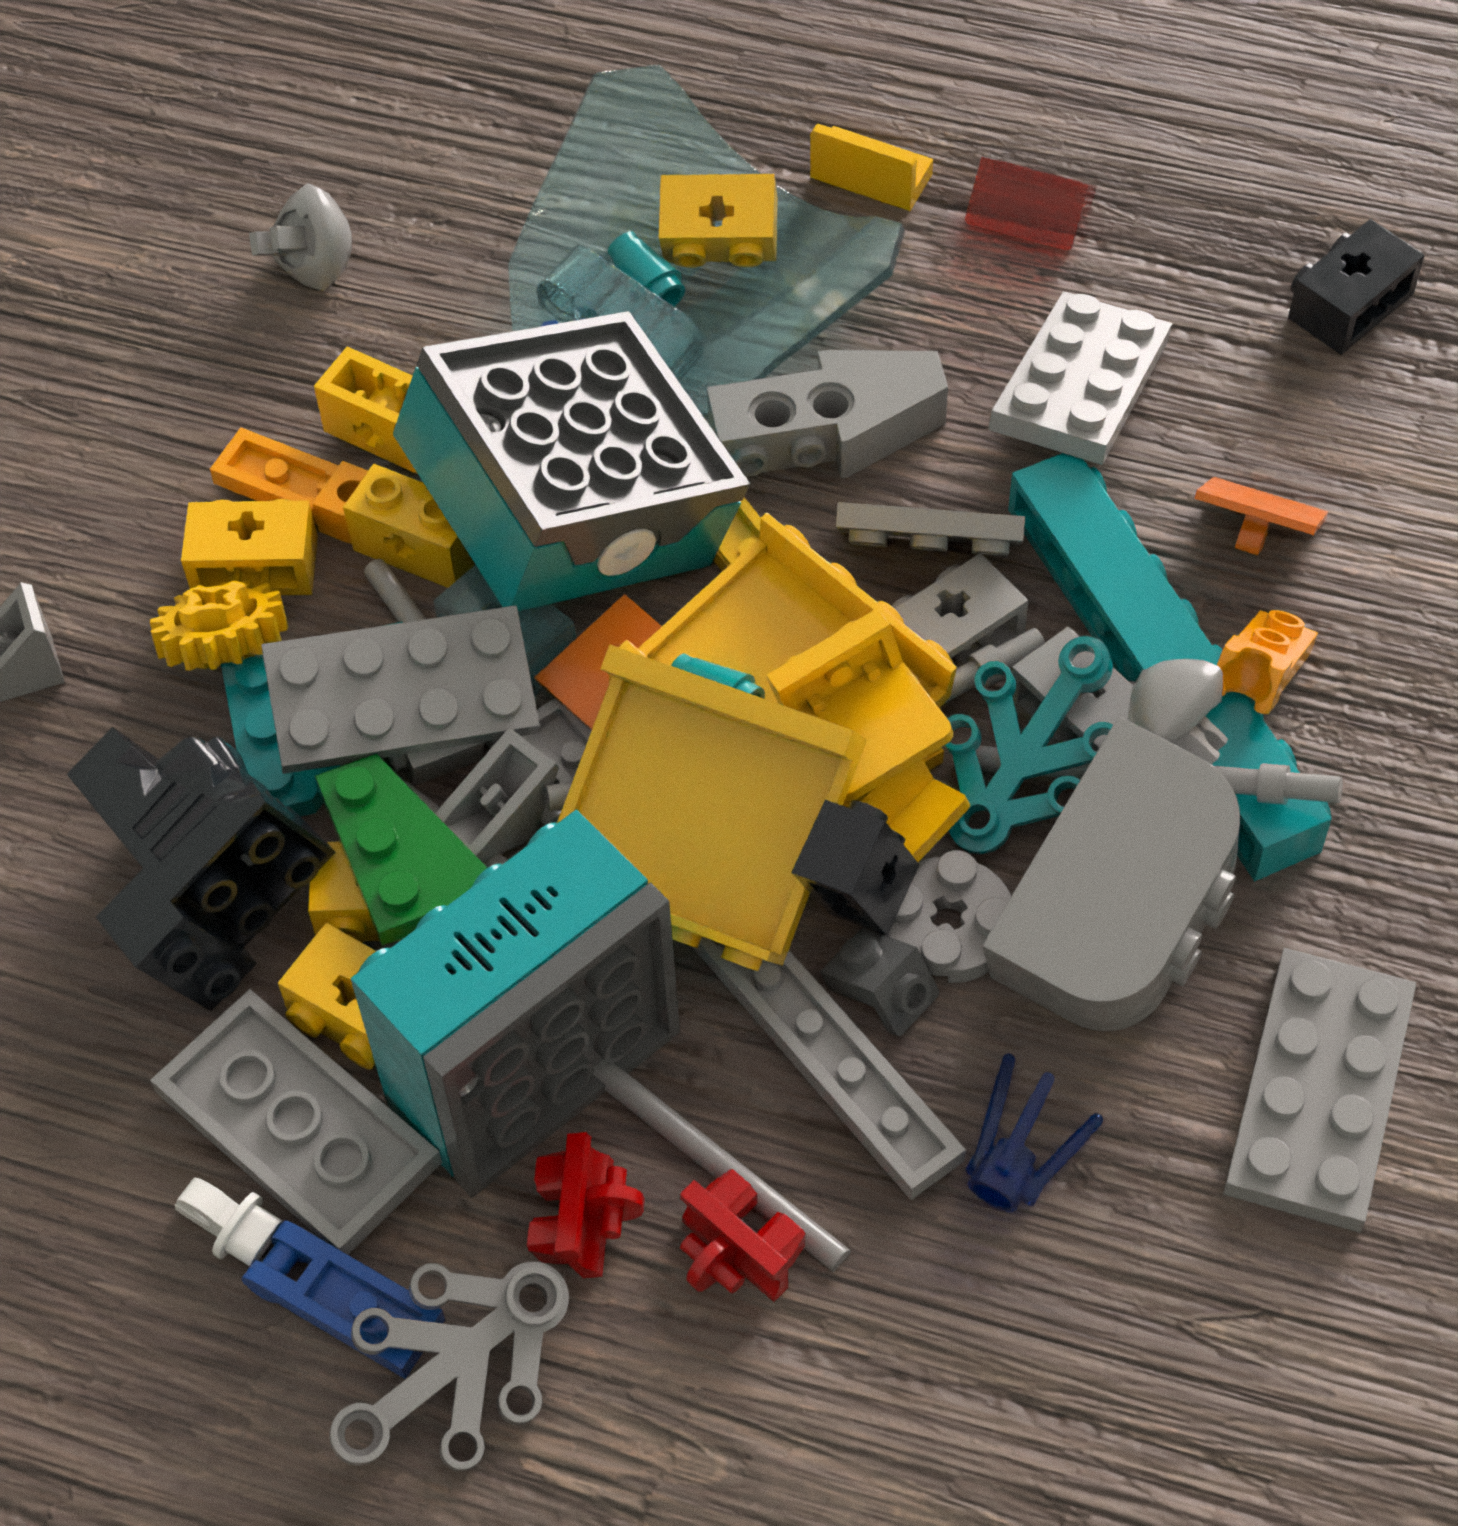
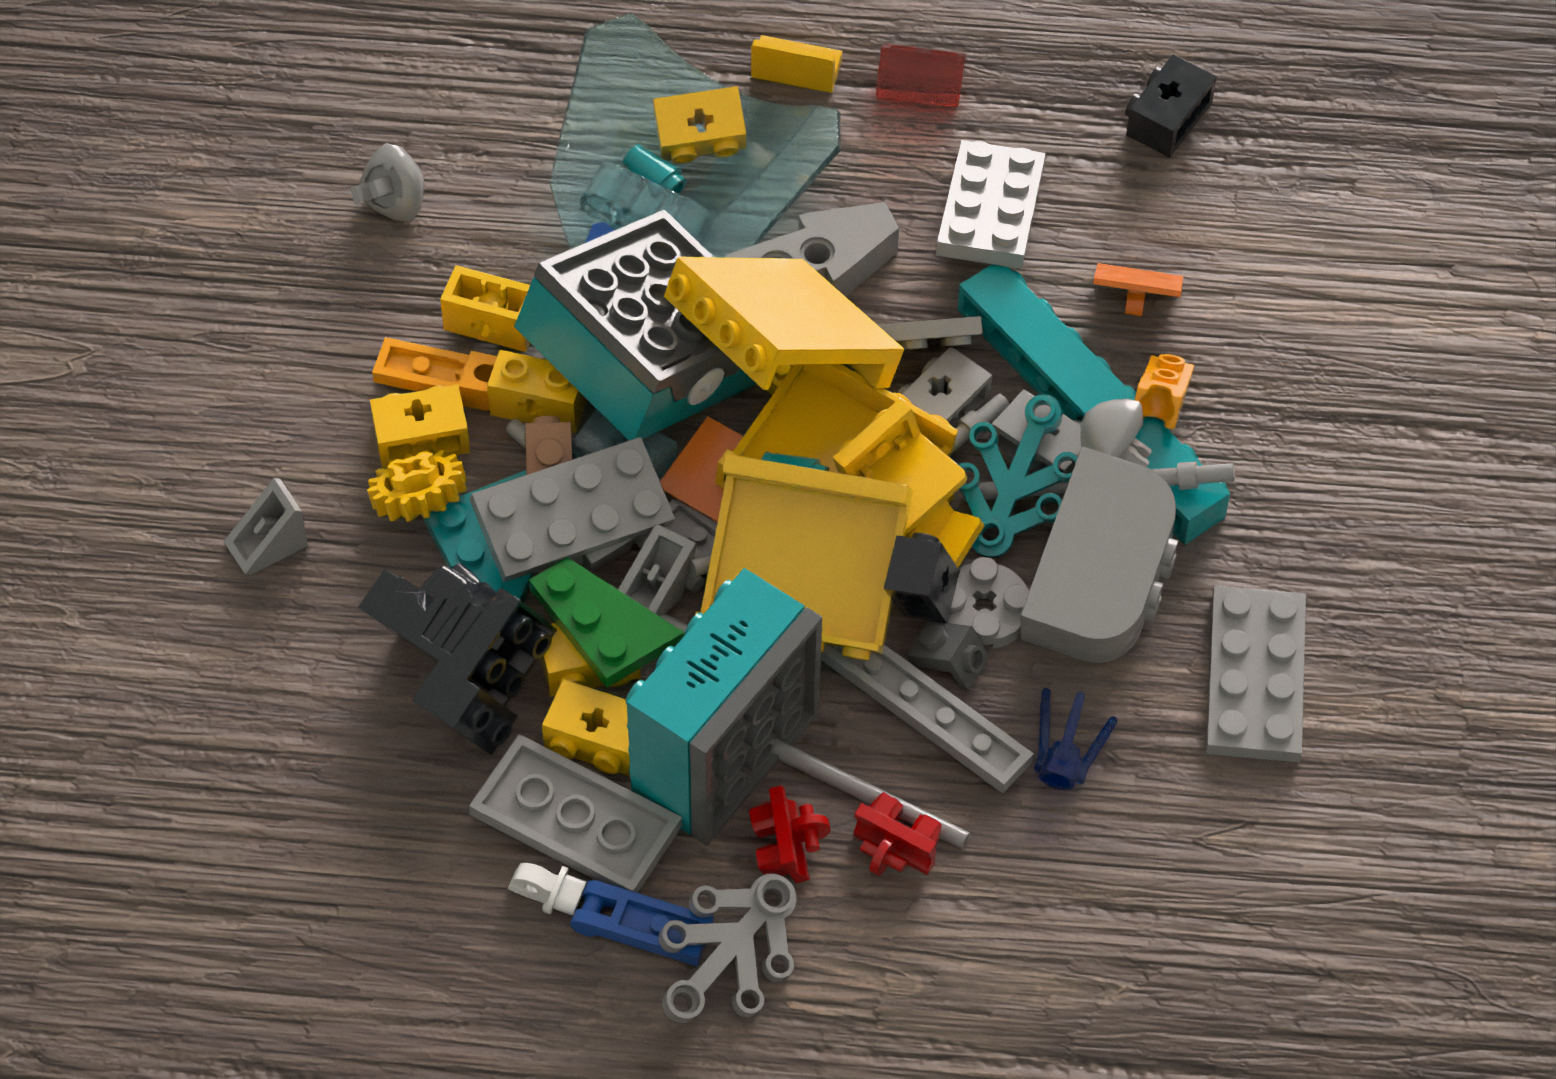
camera: 15 degrees left, 0 degrees up
(401, 593) = (547, 443): none -> medium nougat bracket
(737, 469) = (779, 315): none -> yellow panel

